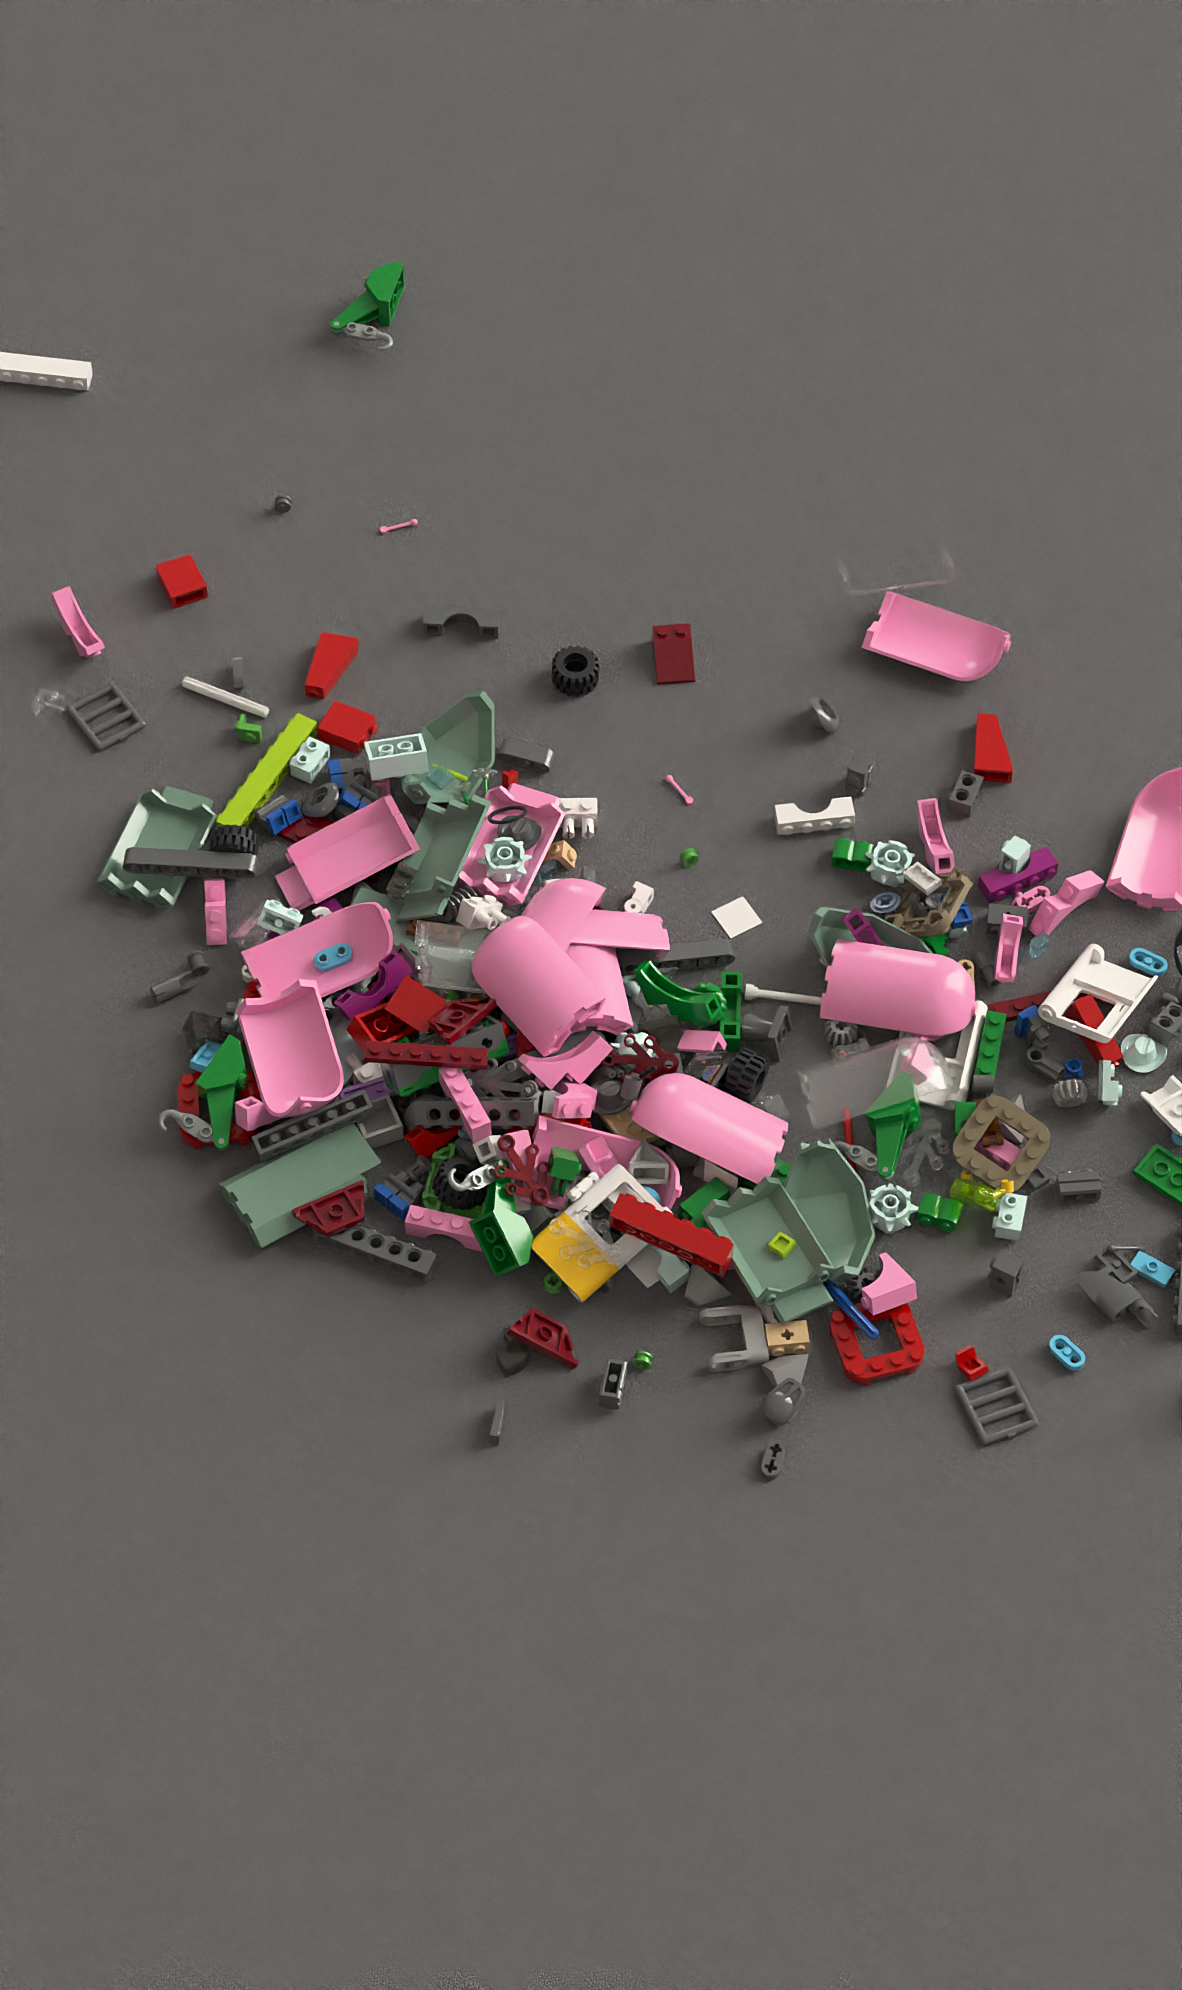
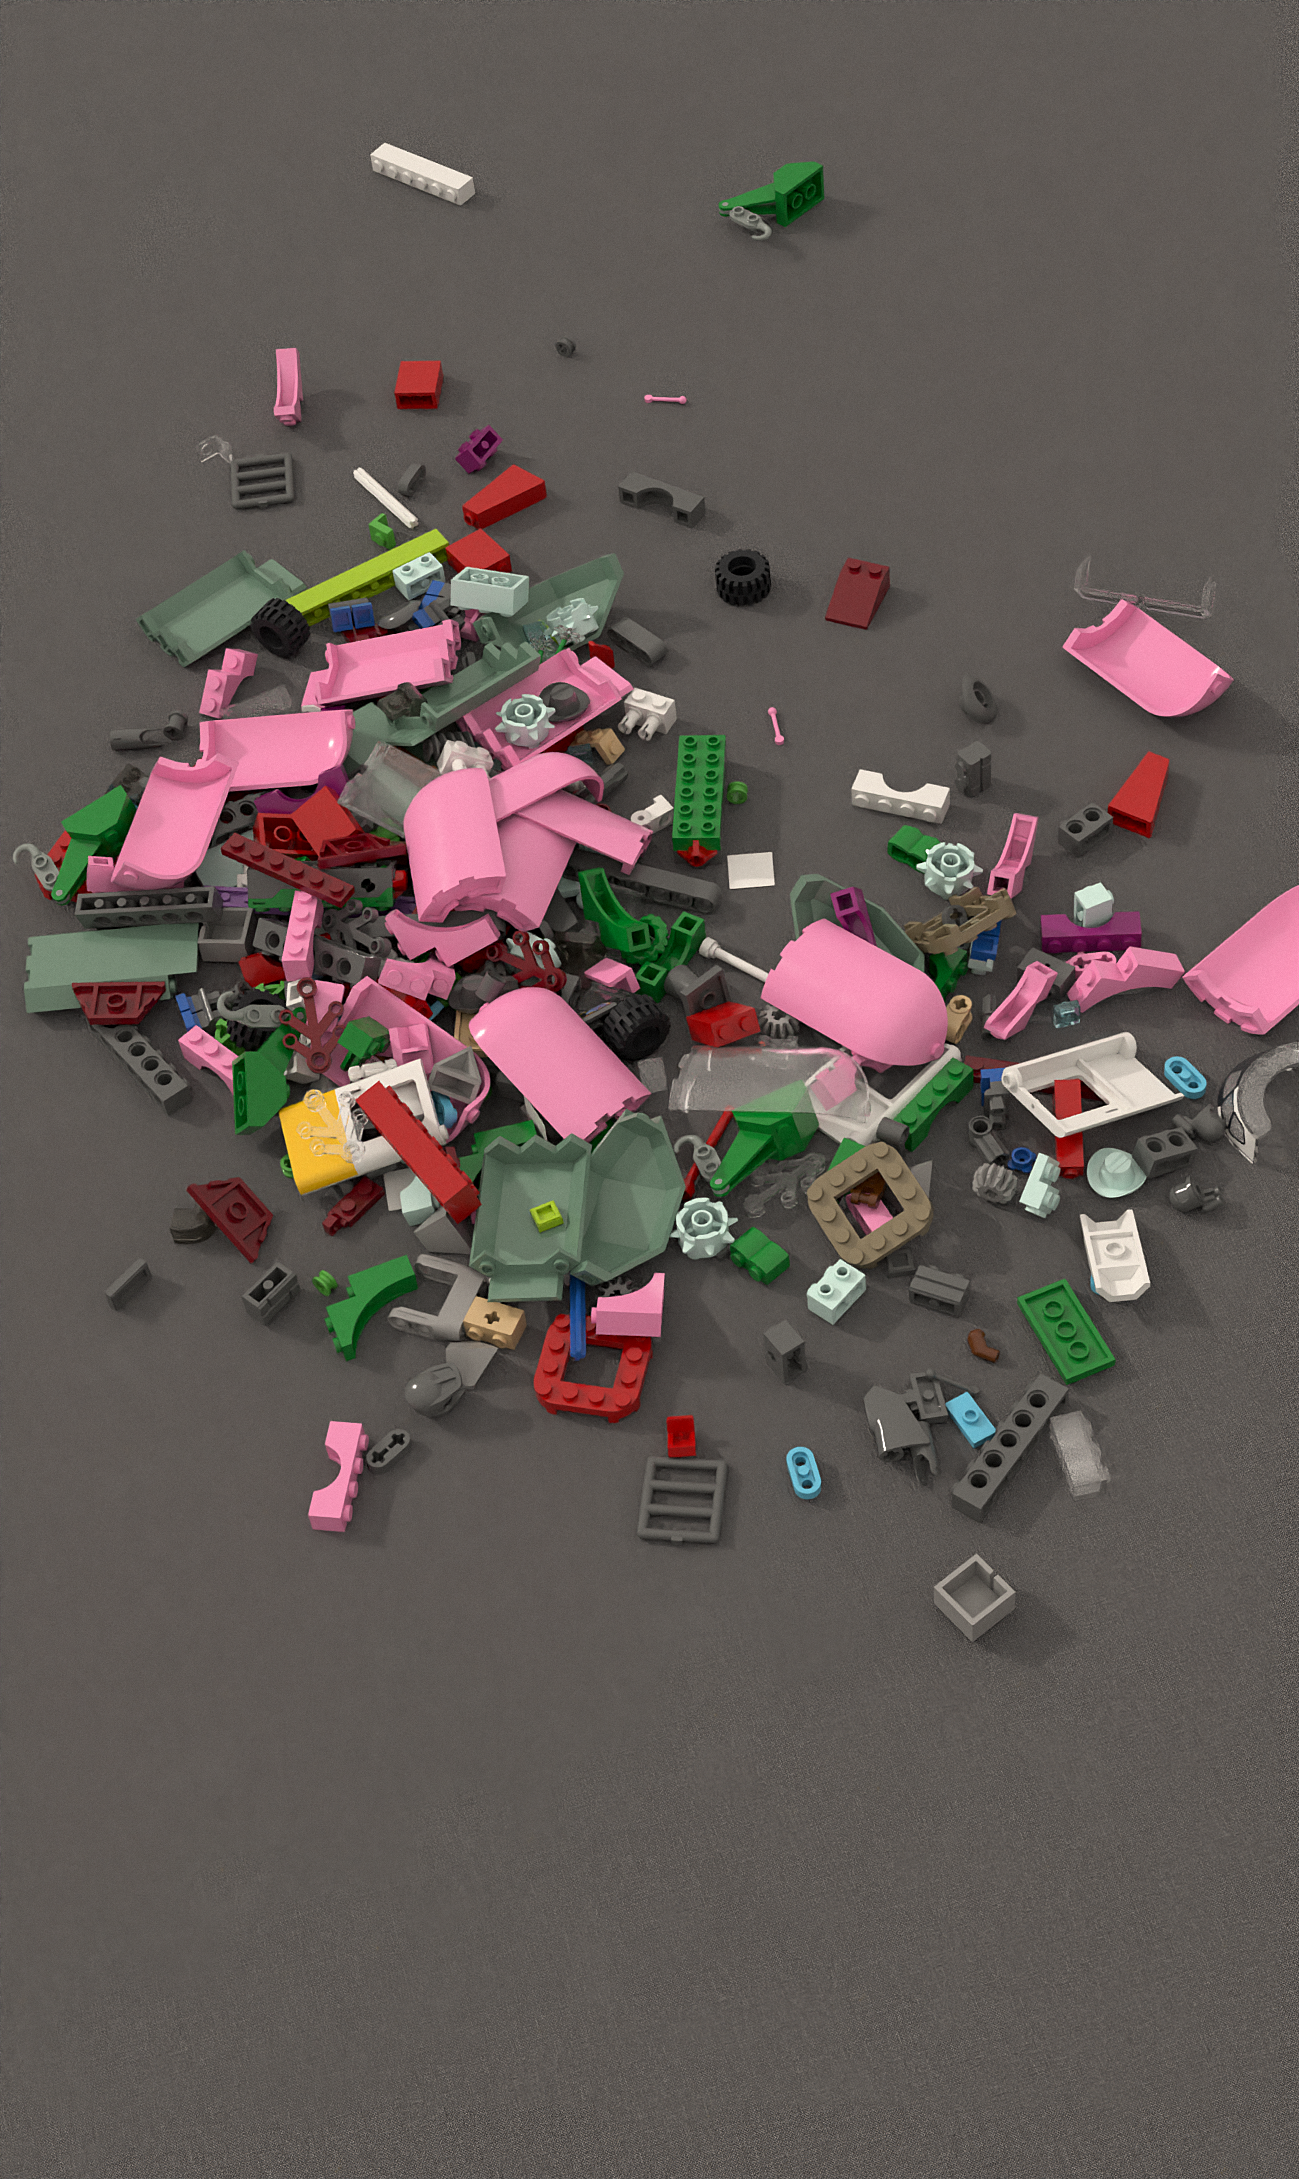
camera: 35 degrees right, 5 degrees down
(190, 863) = (229, 628): dark grey beam -> none
(279, 626) = (478, 449): none -> magenta brick
(279, 918) = (264, 700): light aqua brick -> none
(333, 957) = (292, 756): medium azure plate -> none
(470, 756) = (575, 616): none -> light aqua brick
(505, 809) = (578, 679): black piece -> none
(620, 1294) = (353, 1206): none -> dark red hinge
(668, 873) = (700, 799): none -> green piece
(679, 1355) = (367, 1295): none -> green arch
(742, 1470) = (332, 1505): none -> bright pink arch
(808, 1048) = (723, 1024): none -> red brick
(889, 899) = (919, 910): sand blue gear -> none
(922, 878) = (967, 893): white plate -> none
(977, 1194) = (806, 1250): clear neon green torso -> none
(1127, 1215) = (979, 1347): none -> reddish brown arm

